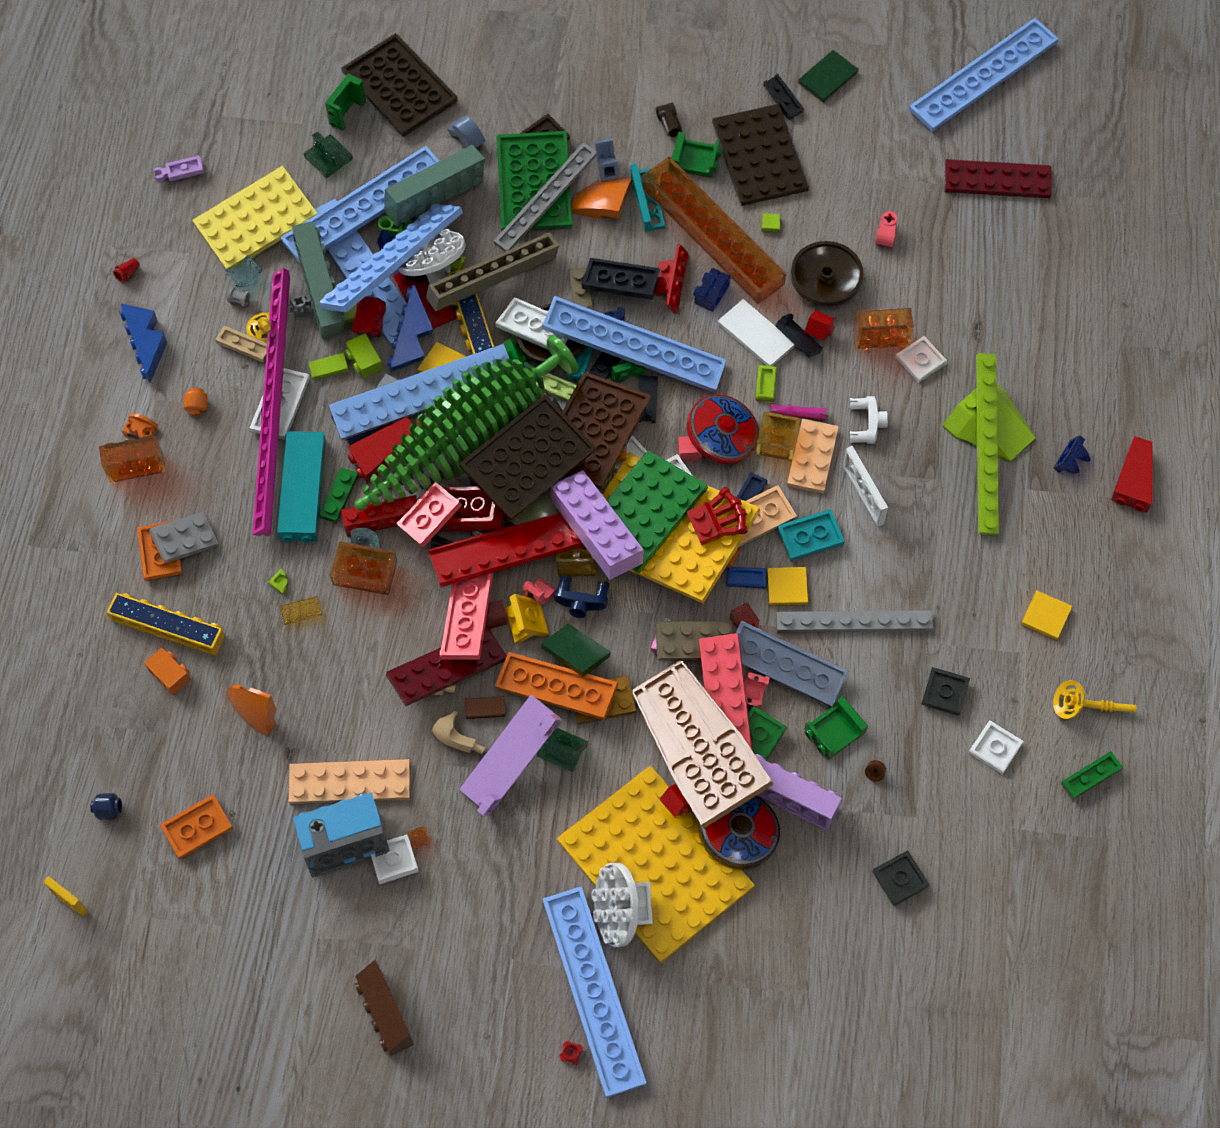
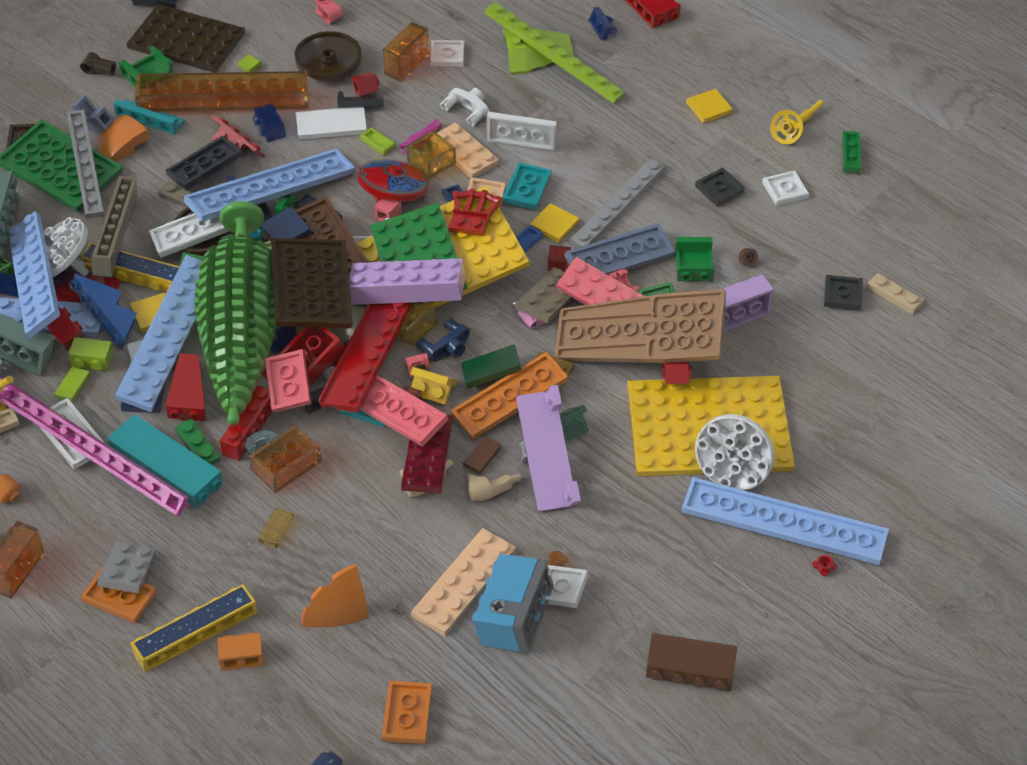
camera: 55 degrees left, 15 degrees down
(279, 582) = (235, 528): lime tile -> none
(592, 391) = (286, 225): none -> dark blue tile
(743, 836) = (740, 362): dish -> none
(939, 923) = (895, 293): none -> tan plate

